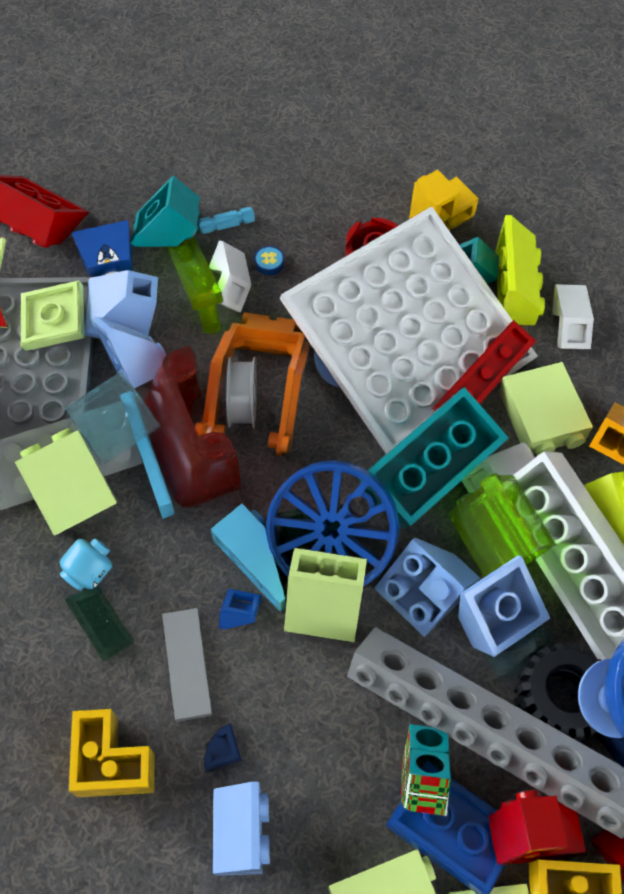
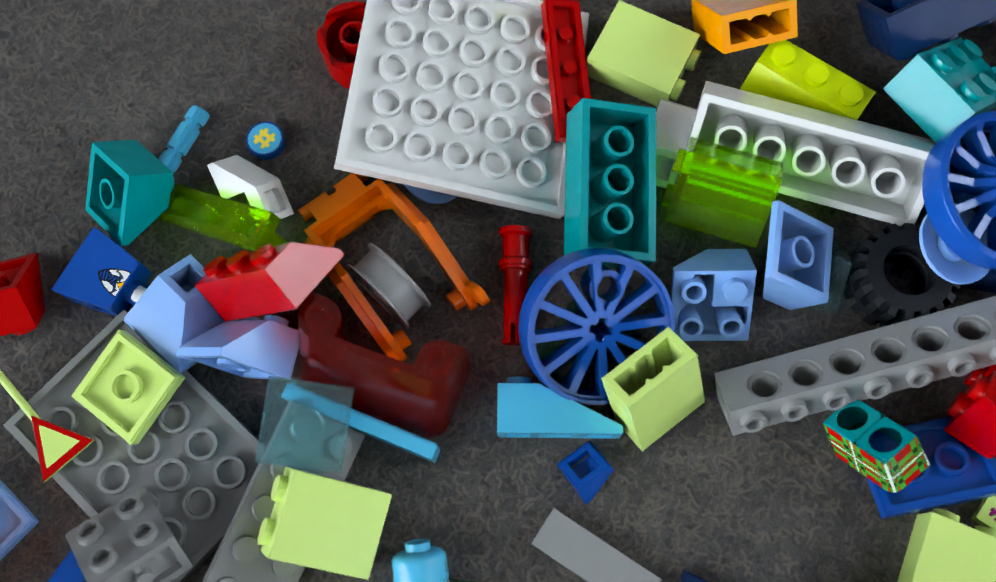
camera: 40 degrees left, 10 degrees up
(179, 320) = (266, 279): none -> red slope
(335, 450) = (515, 268): none -> red pin

